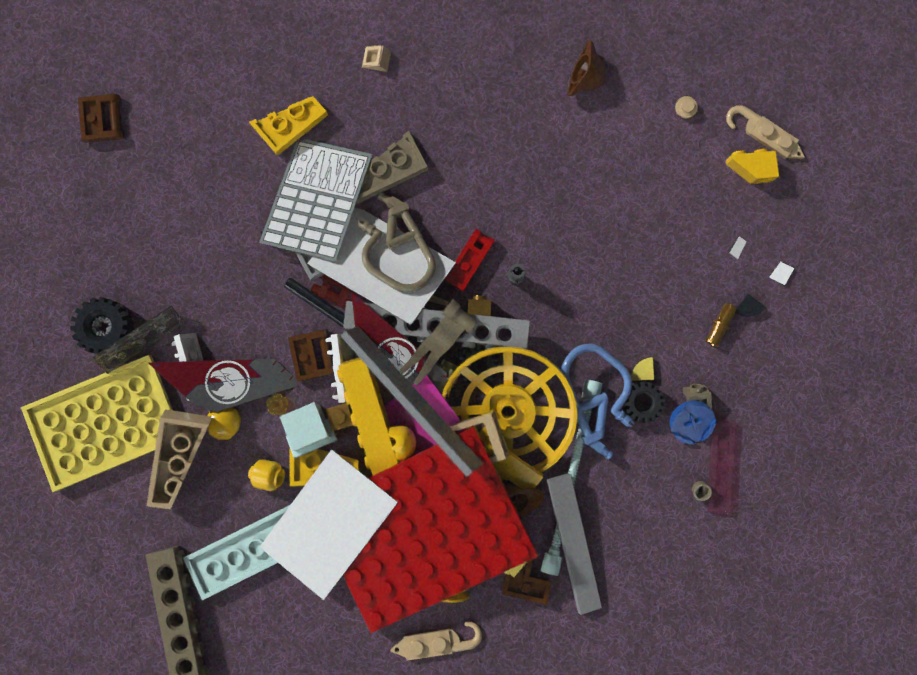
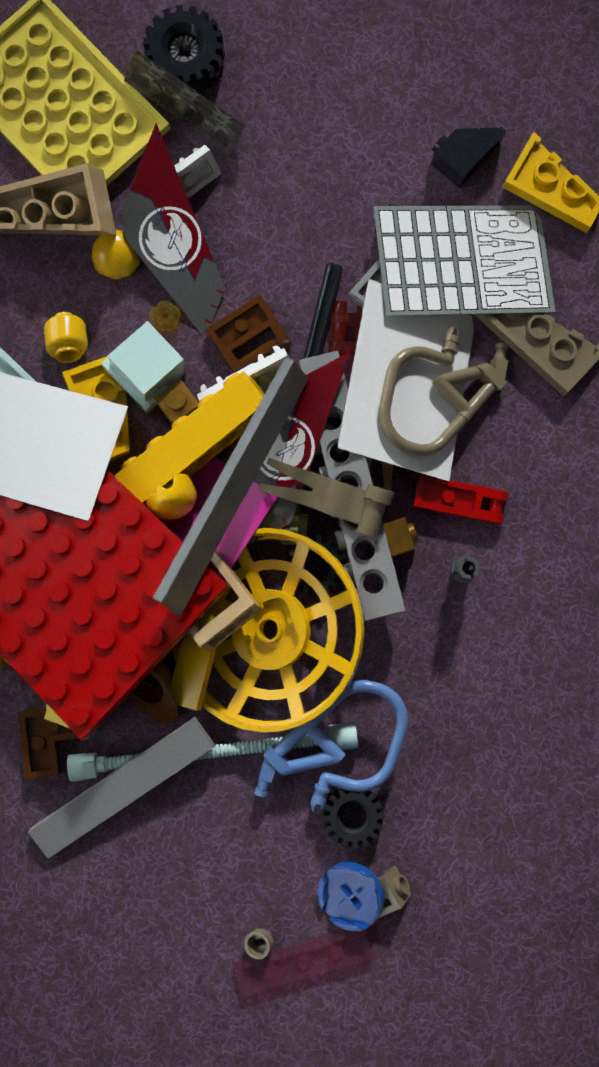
camera: 75 degrees right, 0 degrees up
(245, 171) = (465, 151): none -> black slope
(643, 370) = (398, 800): light yellow tile -> none
(721, 324) = (506, 889): pearl gold axle -> none
(749, 307) = (546, 921): black tile -> none

